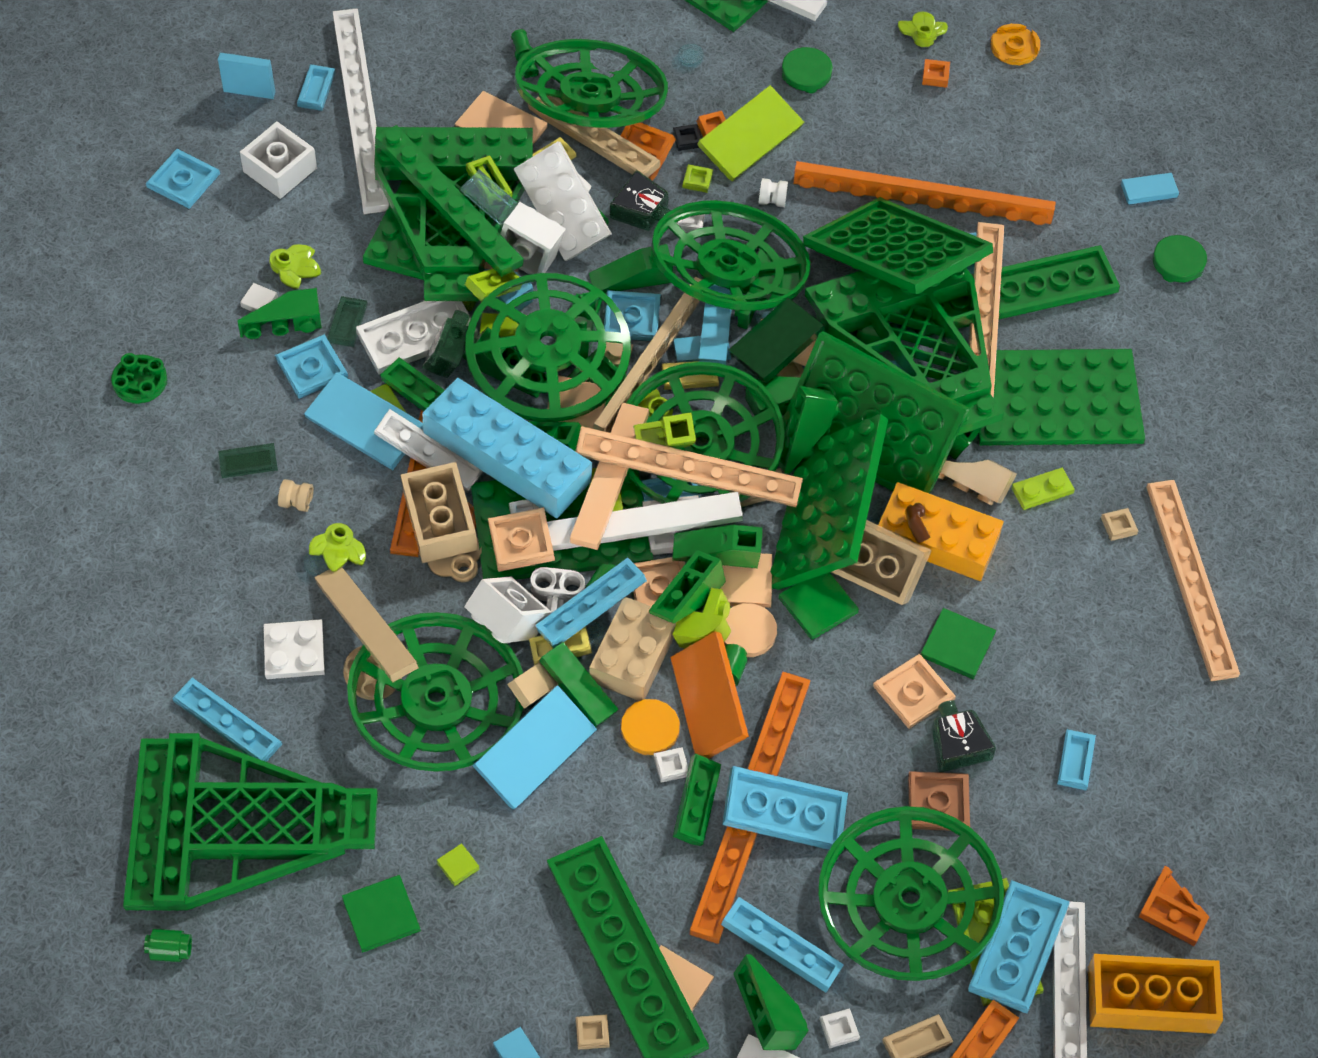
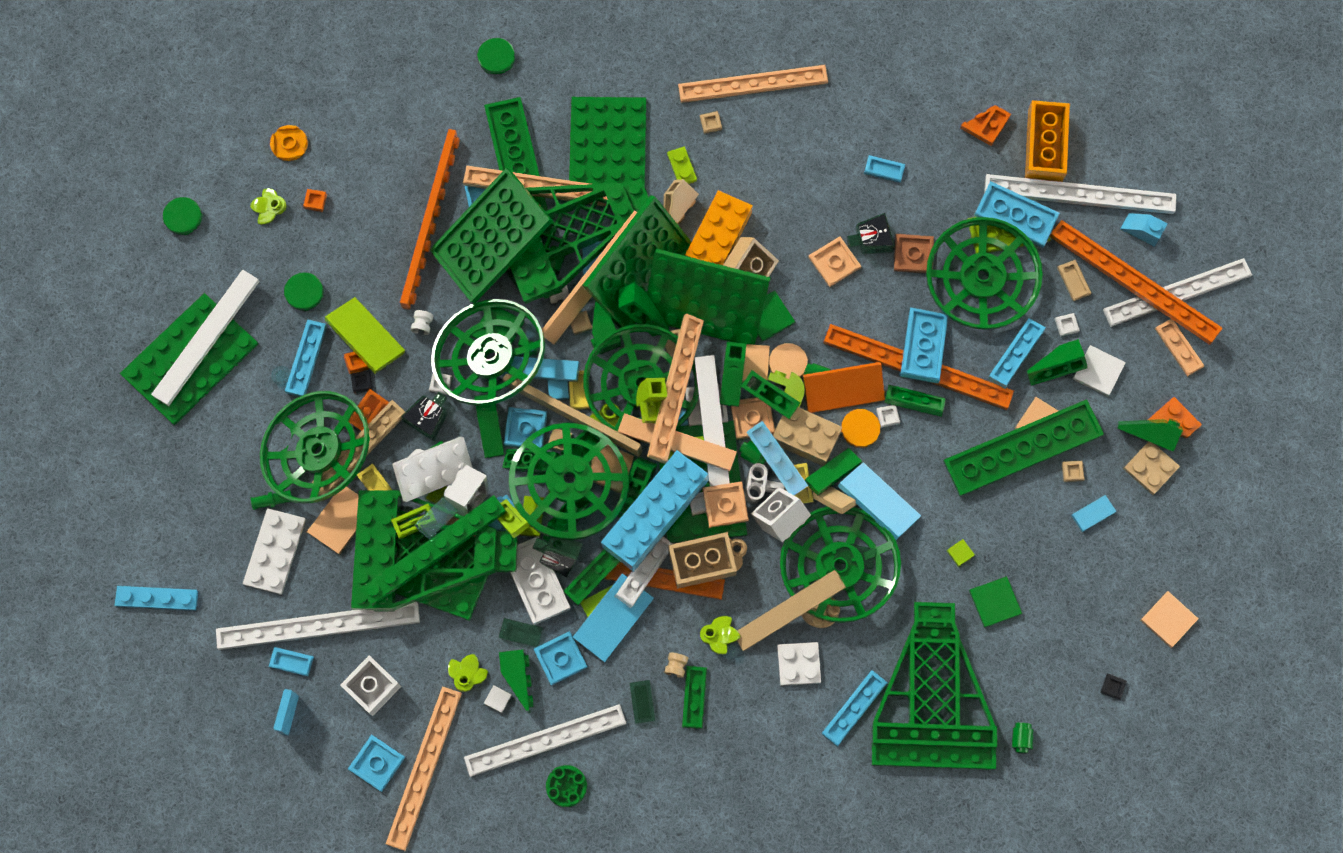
camera: 85 degrees left, 15 degrees up
(173, 226) = (423, 768): none -> light nougat tile
(202, 355) = (545, 740): none -> white tile
(251, 522) = (694, 697): none -> green tile
(453, 732) = (867, 553): none -> clear green tile
(458, 62) = (274, 551): none -> white plate
(697, 178) = (401, 376): lime tile -> none
(715, 76) = (305, 358): none -> medium azure plate
(776, 340) = (566, 324): dark green tile -> none
(915, 523) = (717, 244): reddish brown arm -> none
(958, 643) = (800, 231): green tile -> none
(1149, 188) = (431, 68): medium azure tile -> none

